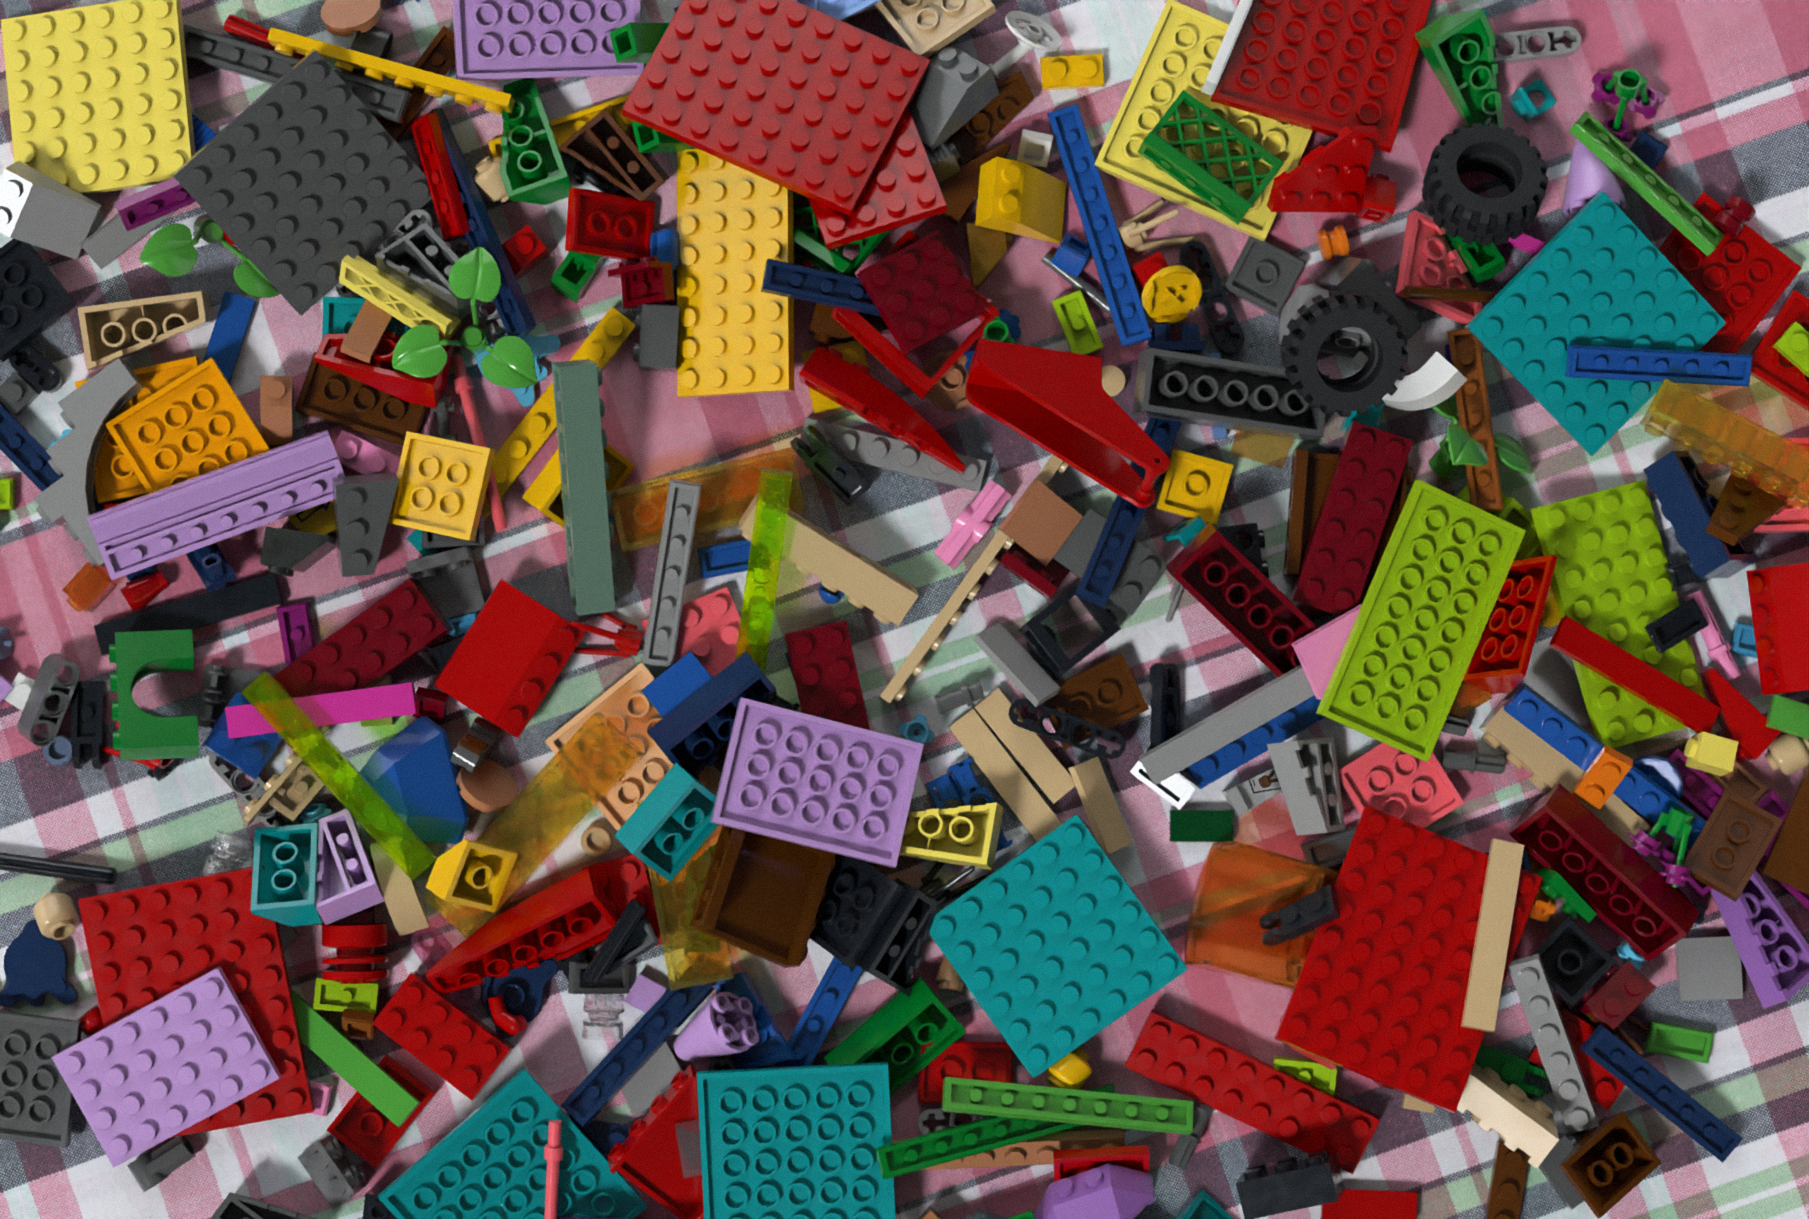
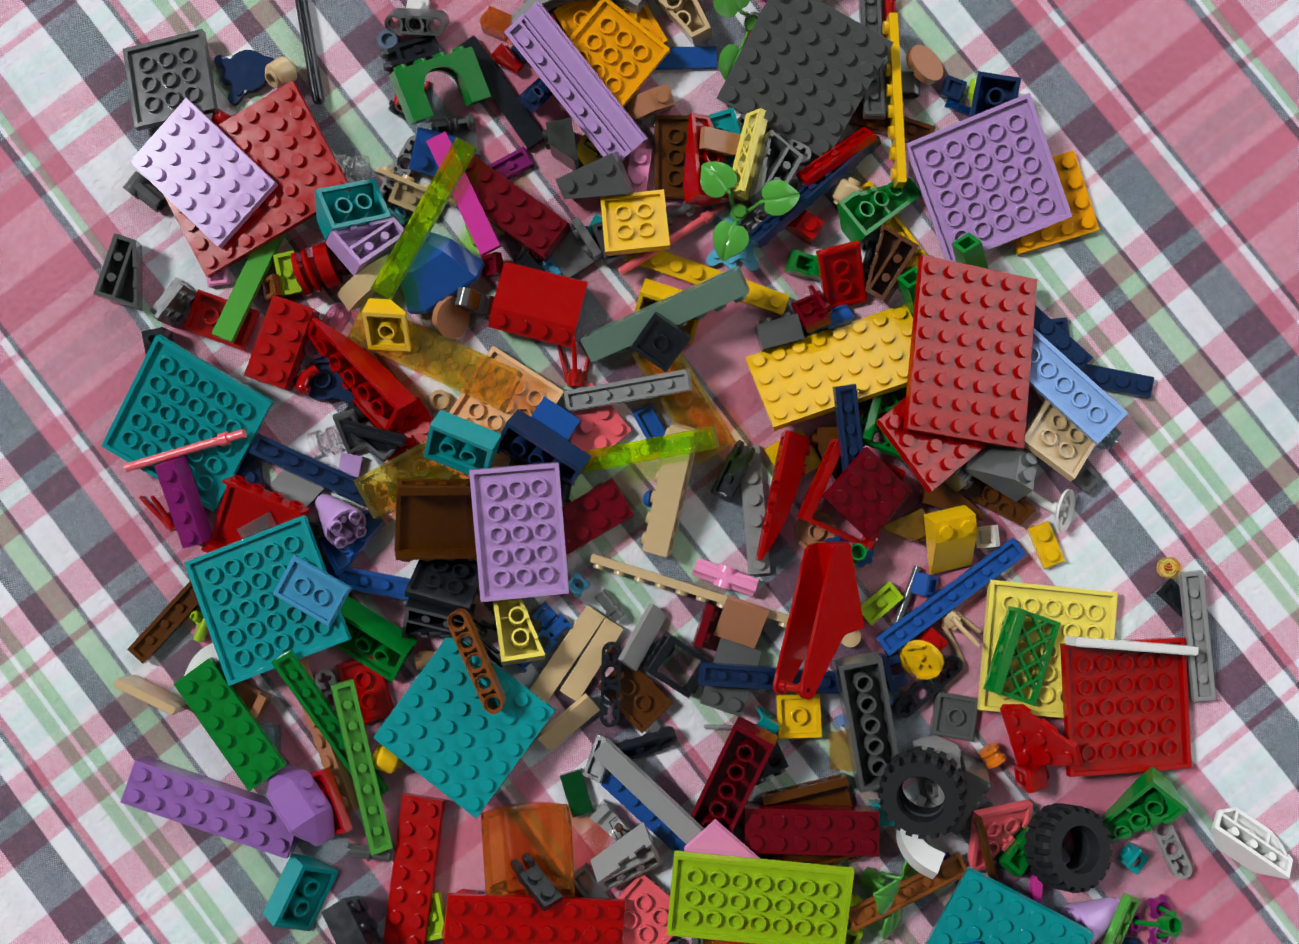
camera: 70 degrees right, 0 degrees up
(620, 504) = (661, 341): none -> black plate
(804, 1092) = (312, 590): none -> dark azure tile
(988, 902) = (476, 672): none -> dark orange beam

